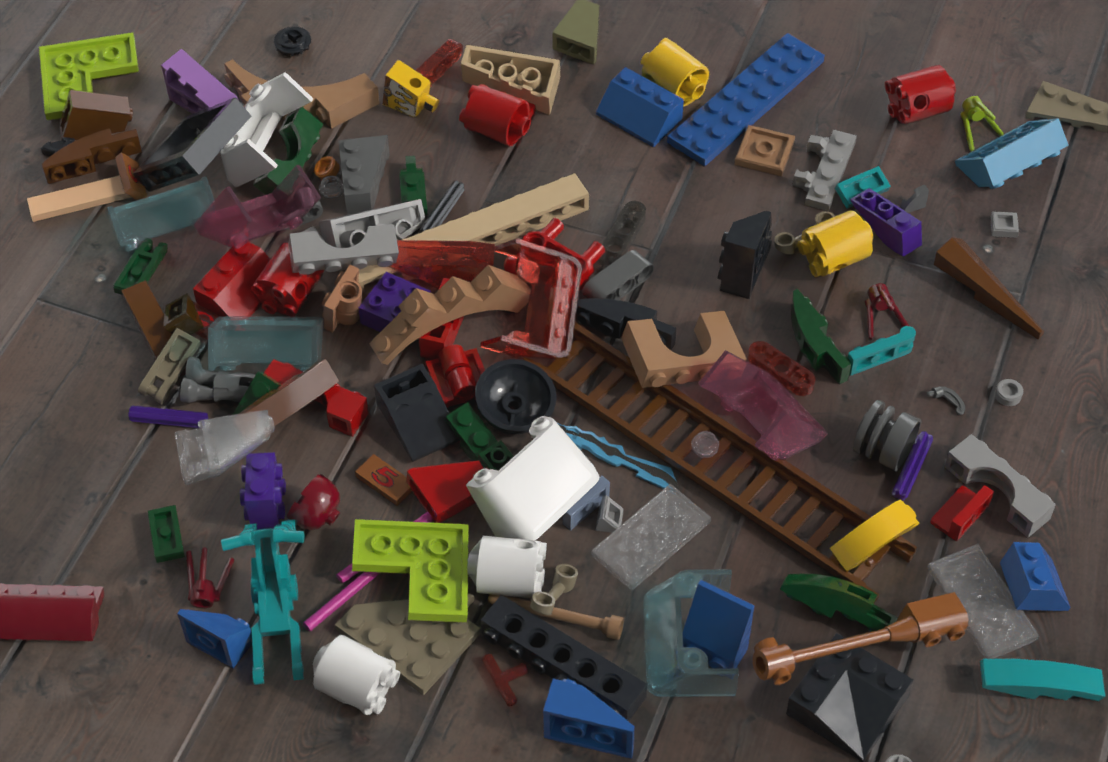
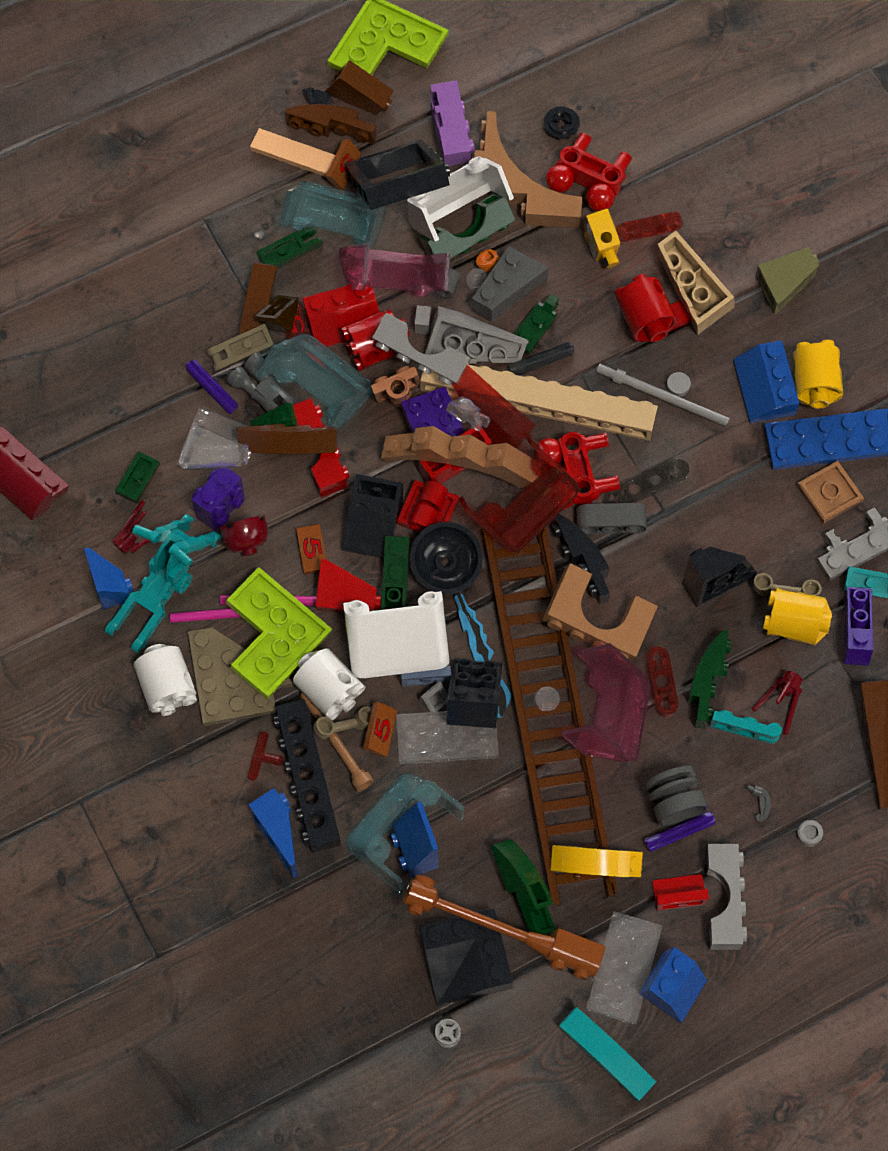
camera: 40 degrees right, 15 degrees up
(351, 56) = (588, 172): none -> red piece
(421, 274) = (466, 411): none -> clear plate
(520, 179) = (619, 377): none -> light grey bar
(571, 155) = (678, 384): none -> light grey tile
(588, 574) = (380, 729): none -> dark orange tile
(646, 482) = (474, 693): none -> black slope

